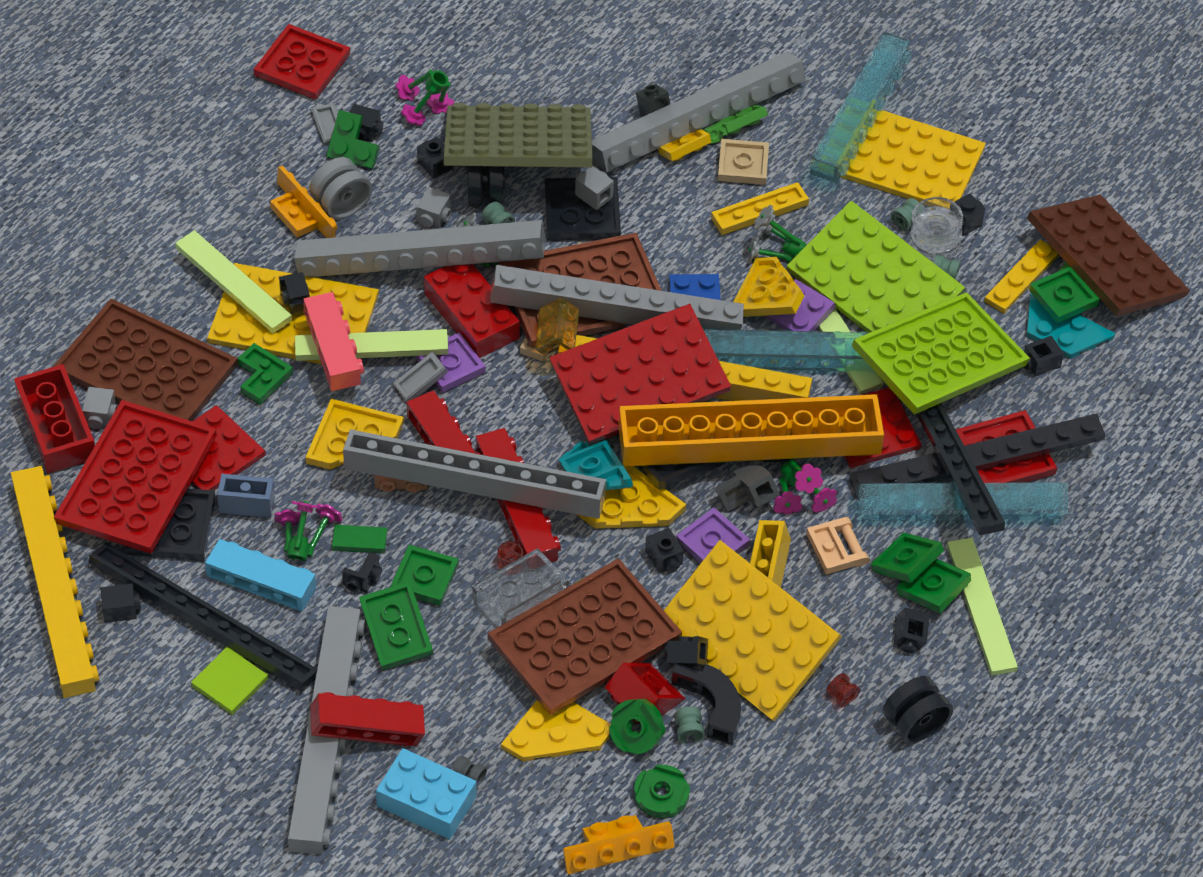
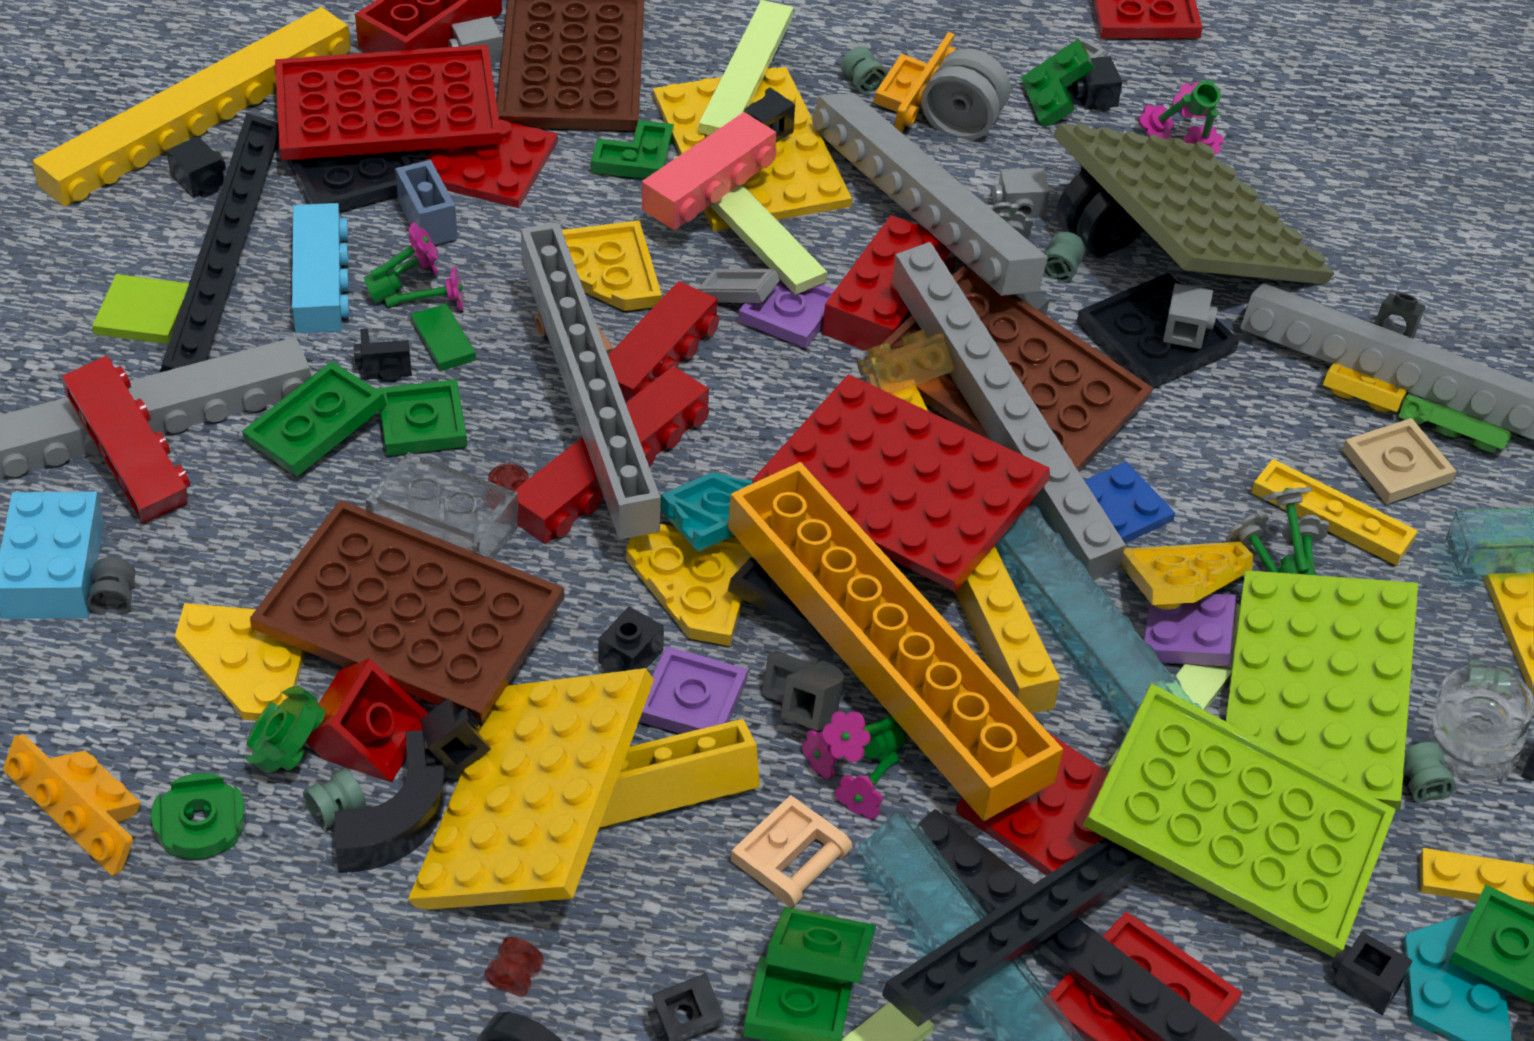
camera: 60 degrees right, 5 degrees down
(269, 226) = (863, 69): none -> sand green wheel

